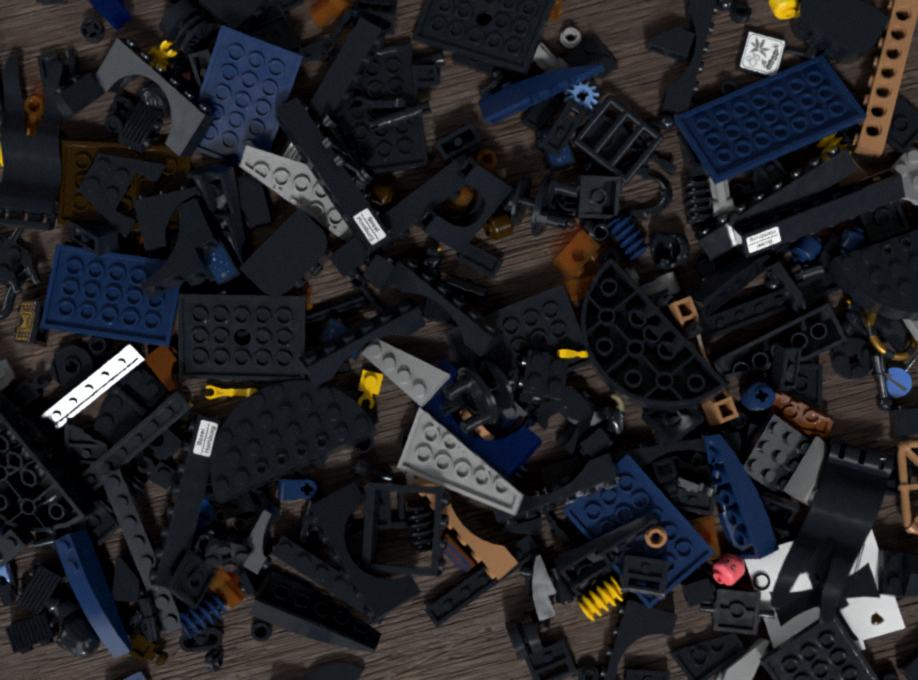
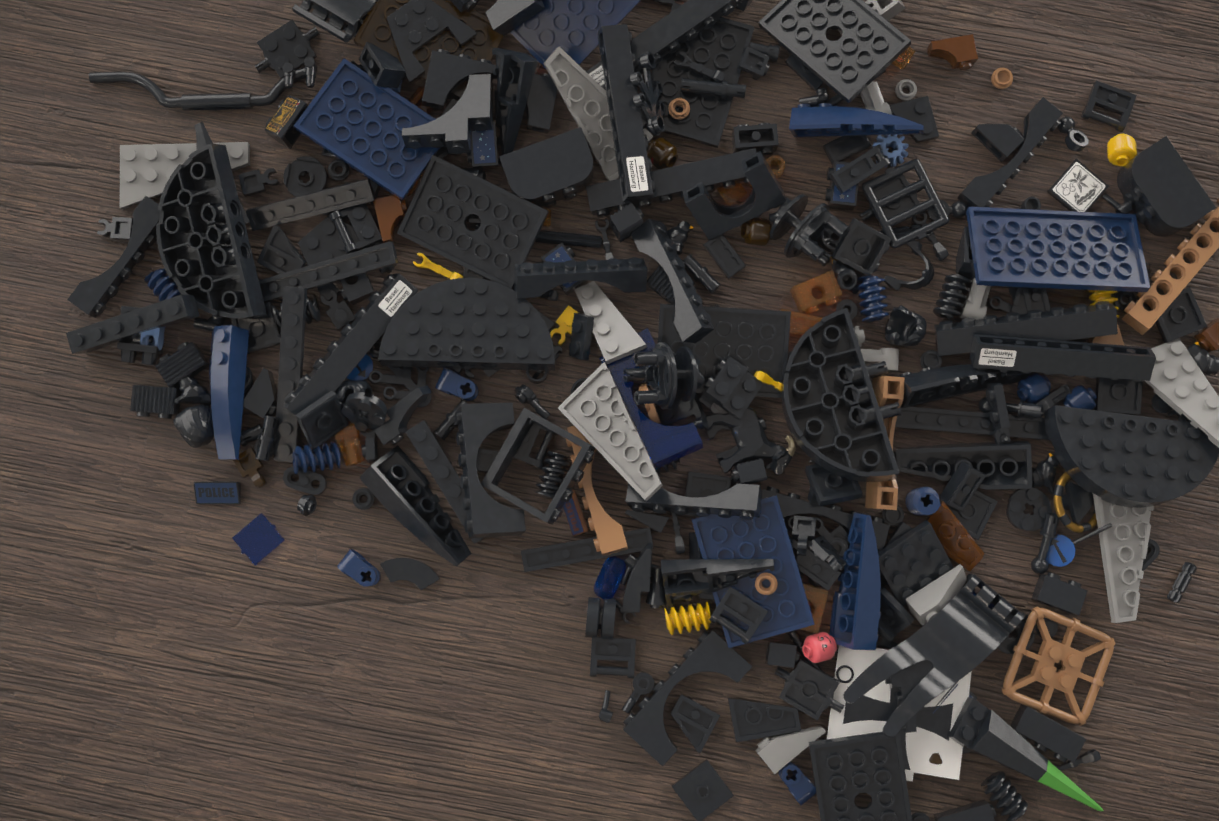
camera: 25 degrees right, 0 degrees up
(378, 142) = (682, 103): none -> medium nougat plate
(387, 392) = (581, 336): none -> black plate
(514, 595) = (609, 577): none -> clear blue plate

